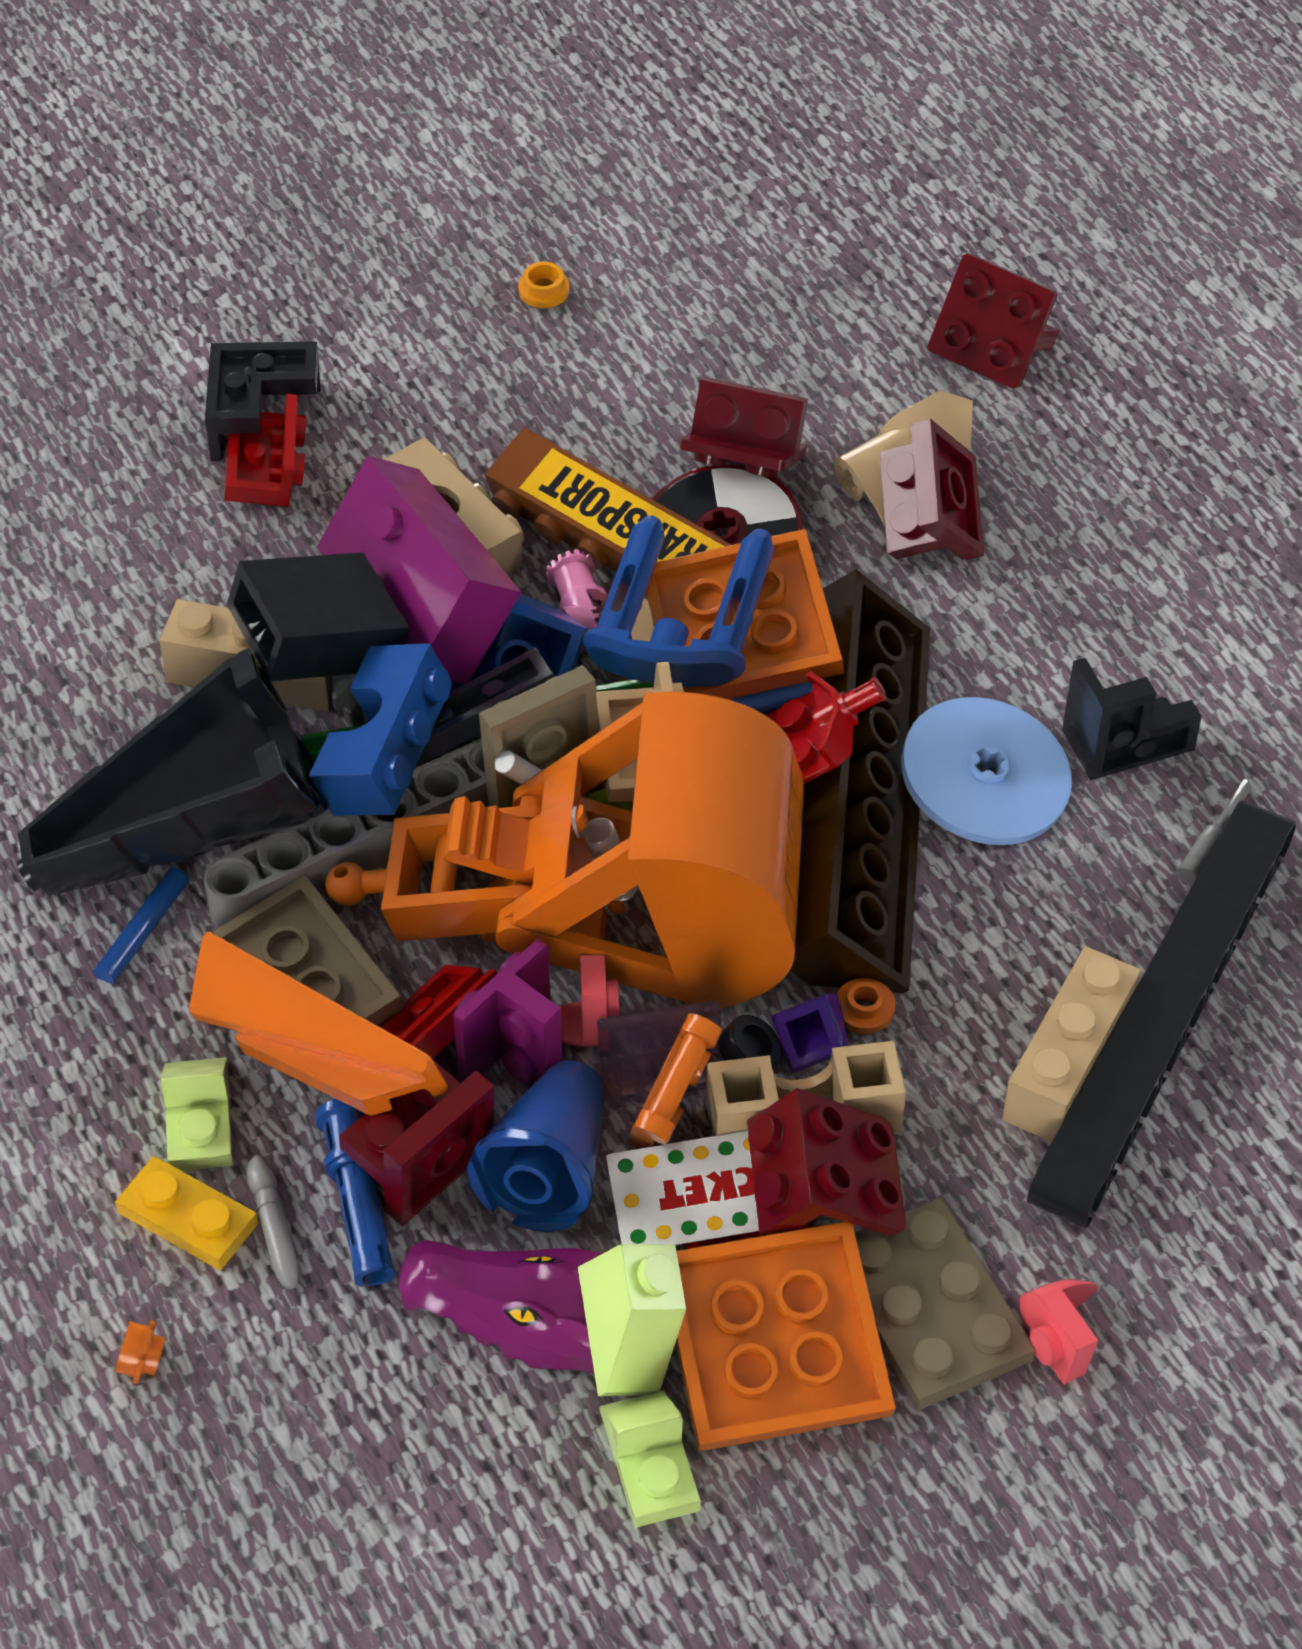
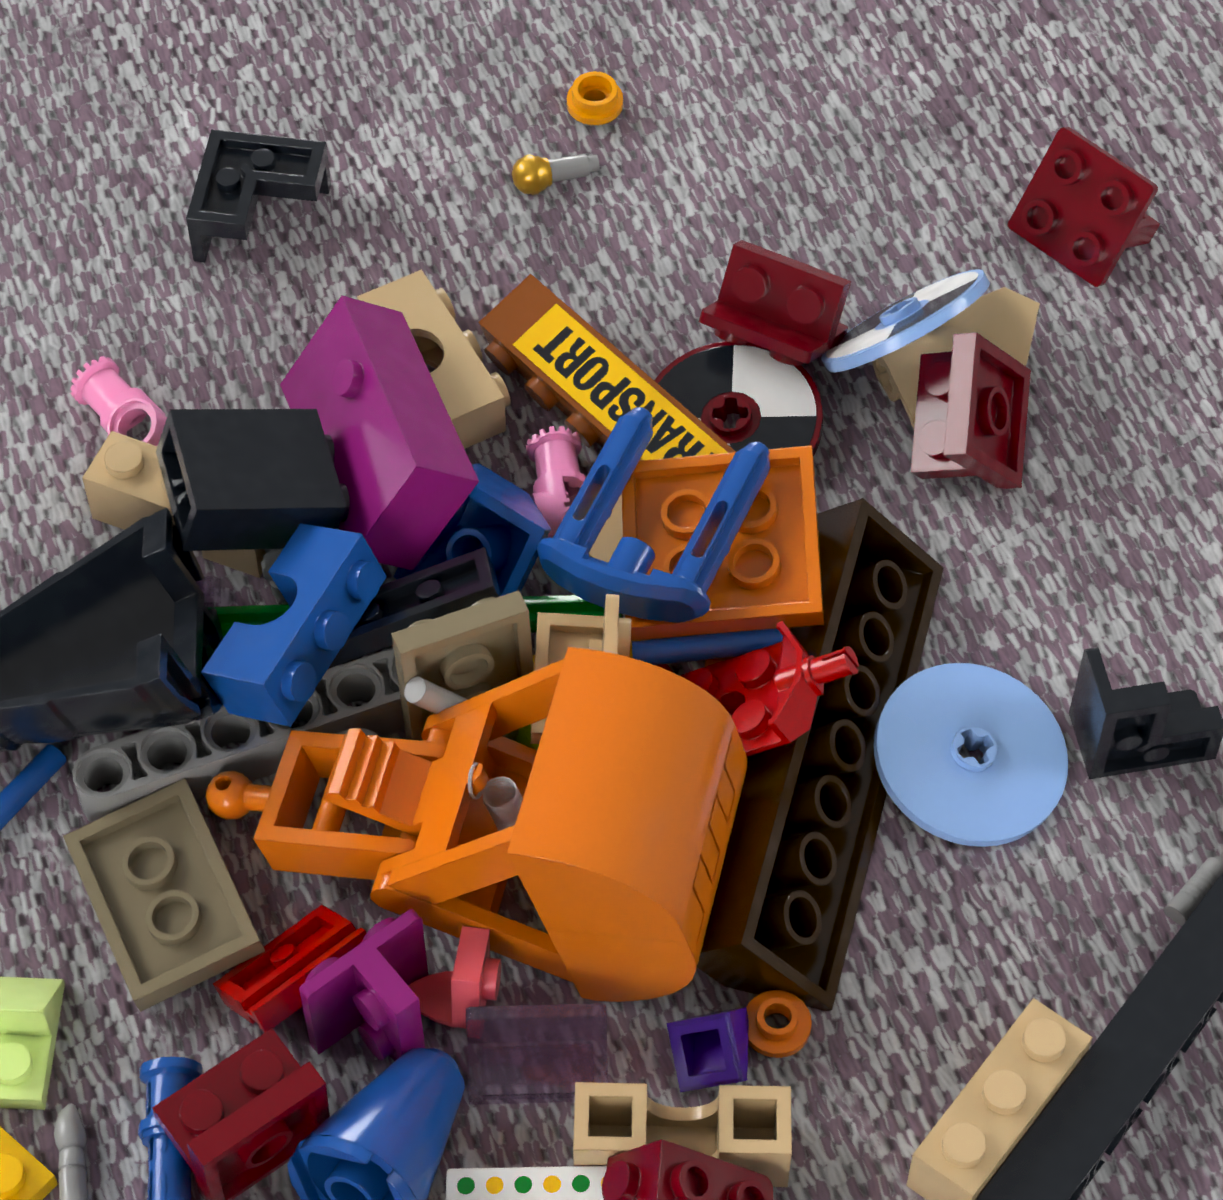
camera: 10 degrees right, 5 degrees up
(168, 579) = (115, 400): none -> bright pink connector
(265, 463) = (246, 275): red bracket -> none
(306, 1032) = (139, 981): orange wedge -> none
(504, 352) = (533, 174): none -> piece
(682, 1067) = (519, 1122): orange plate -> none
(747, 1038) = (637, 1054): black tile -> none
(860, 426) = (906, 320): none -> piece

